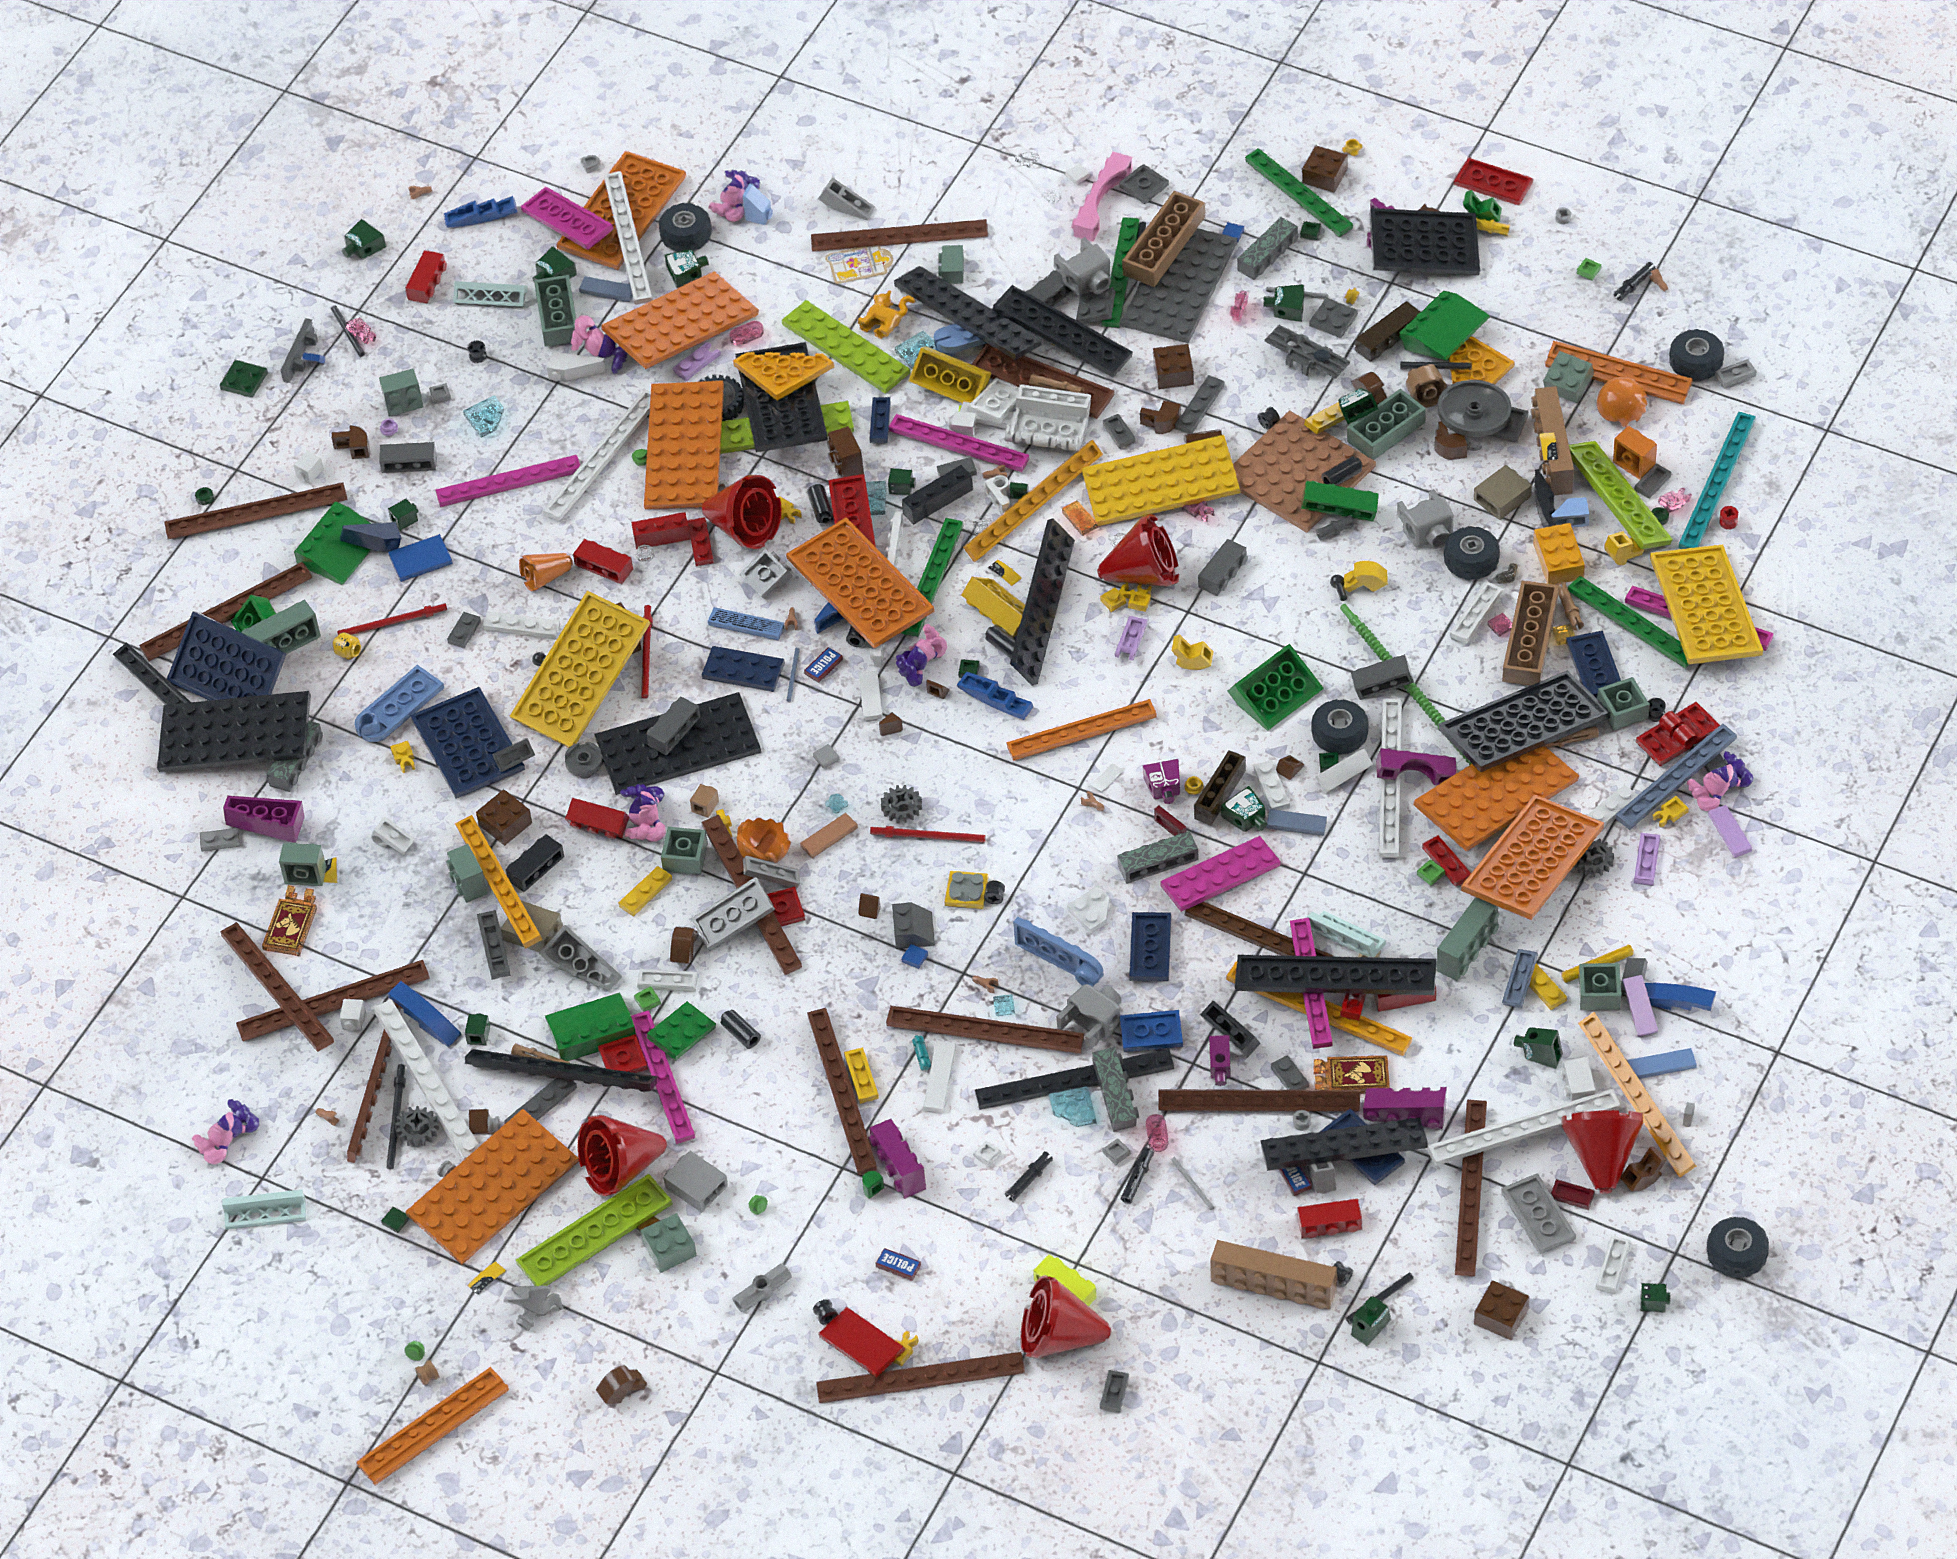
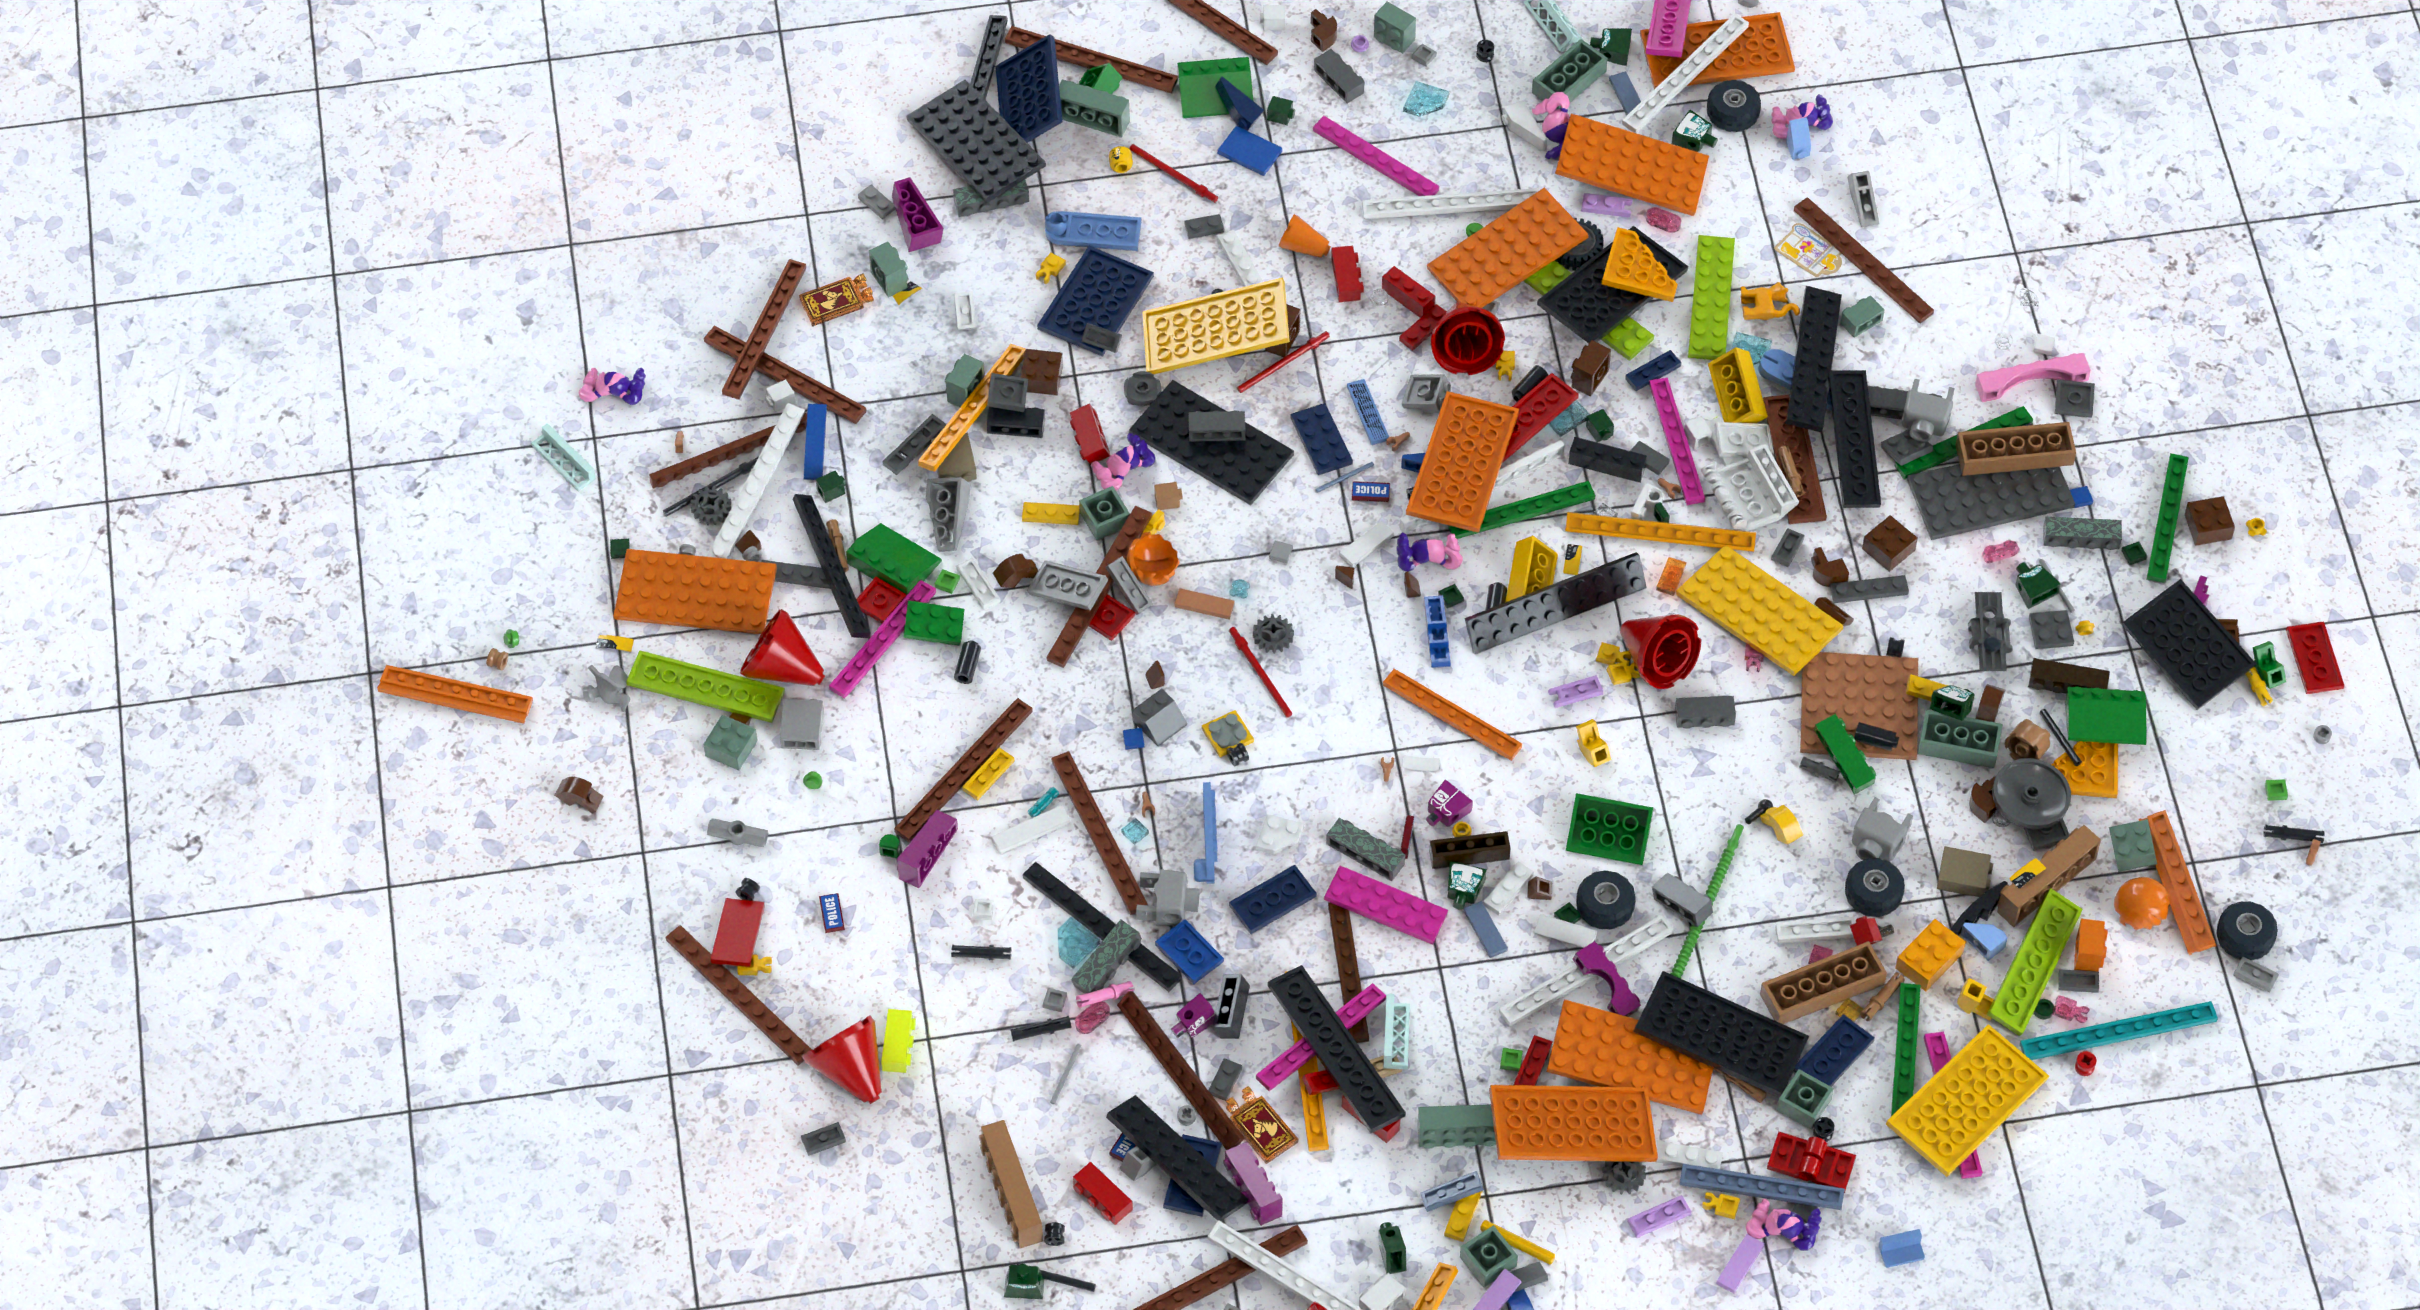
camera: 50 degrees right, 5 degrees up
(509, 846) = (1007, 392): none -> dark grey plate
(1146, 1105) = (1111, 992): none -> bright pink pin
(1507, 580) = (1865, 930): none -> red brick
(1797, 722) = (1901, 1248): none -> medium blue panel

